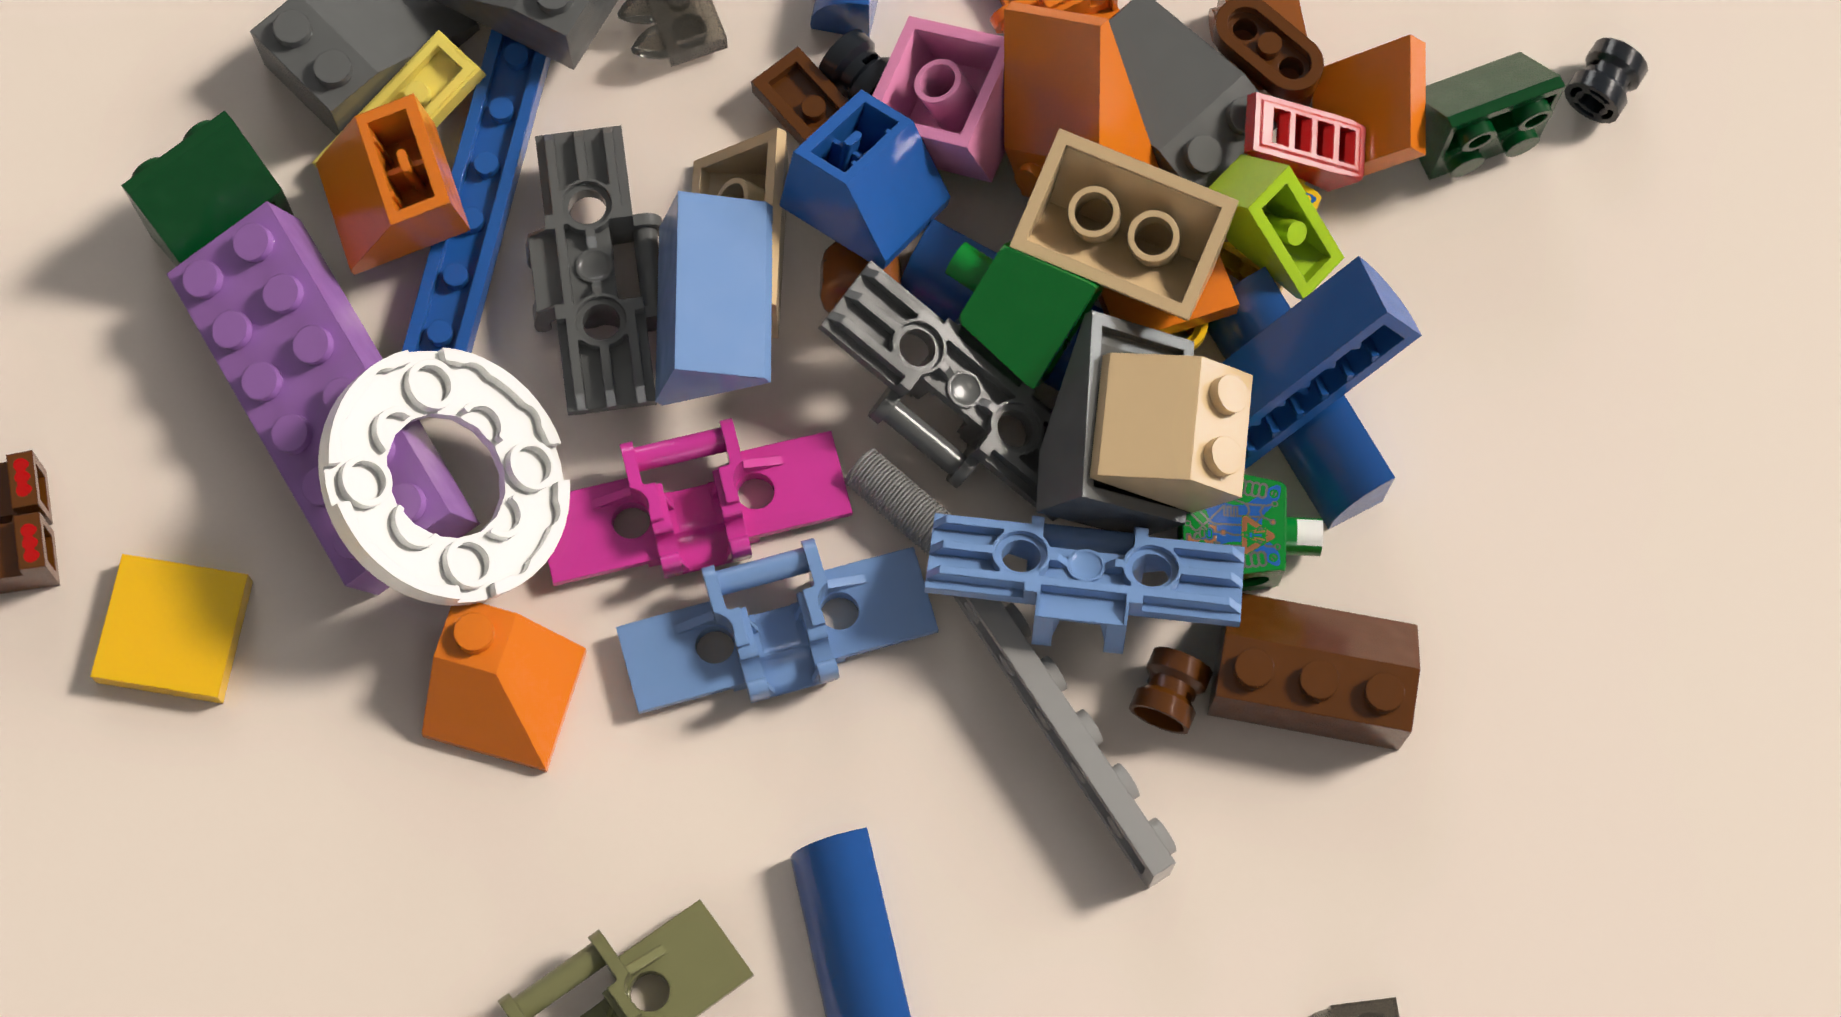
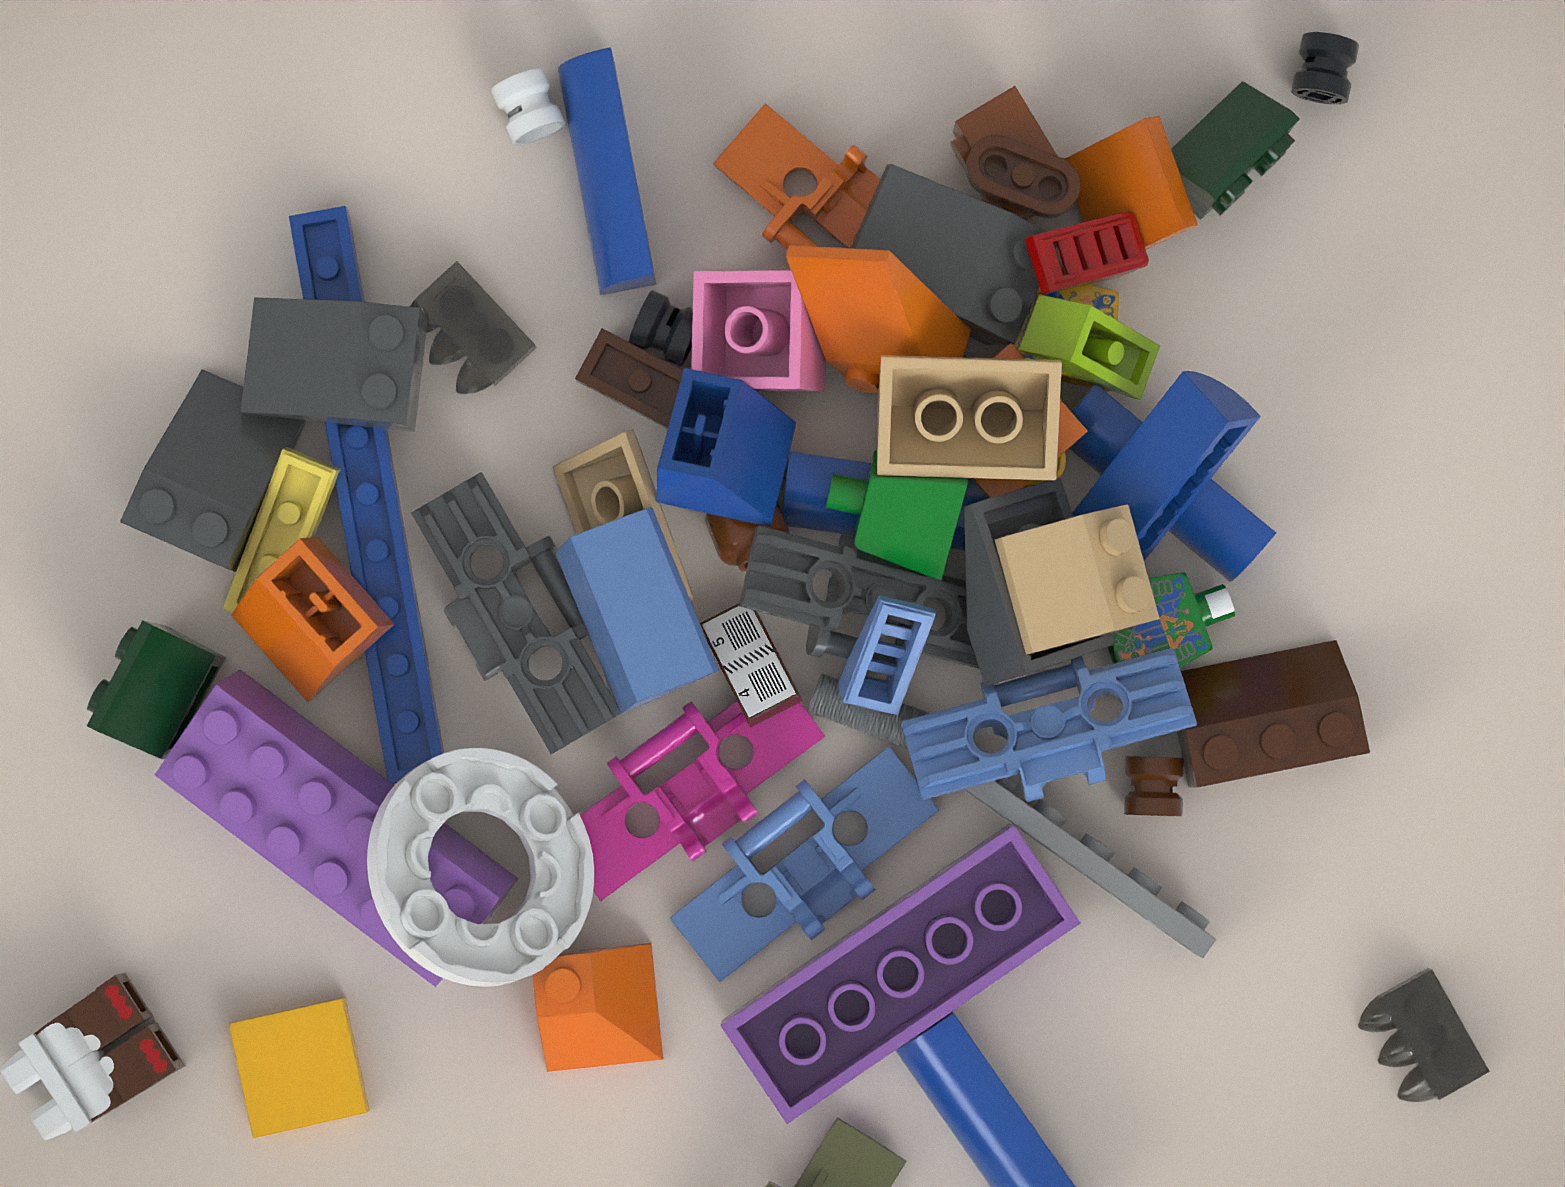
camera: 15 degrees left, 15 degrees up
(807, 409) = (750, 663): none -> white tile
(828, 766) = (899, 973): none -> medium lavender brick
(917, 476) = (889, 693): none -> medium blue slope

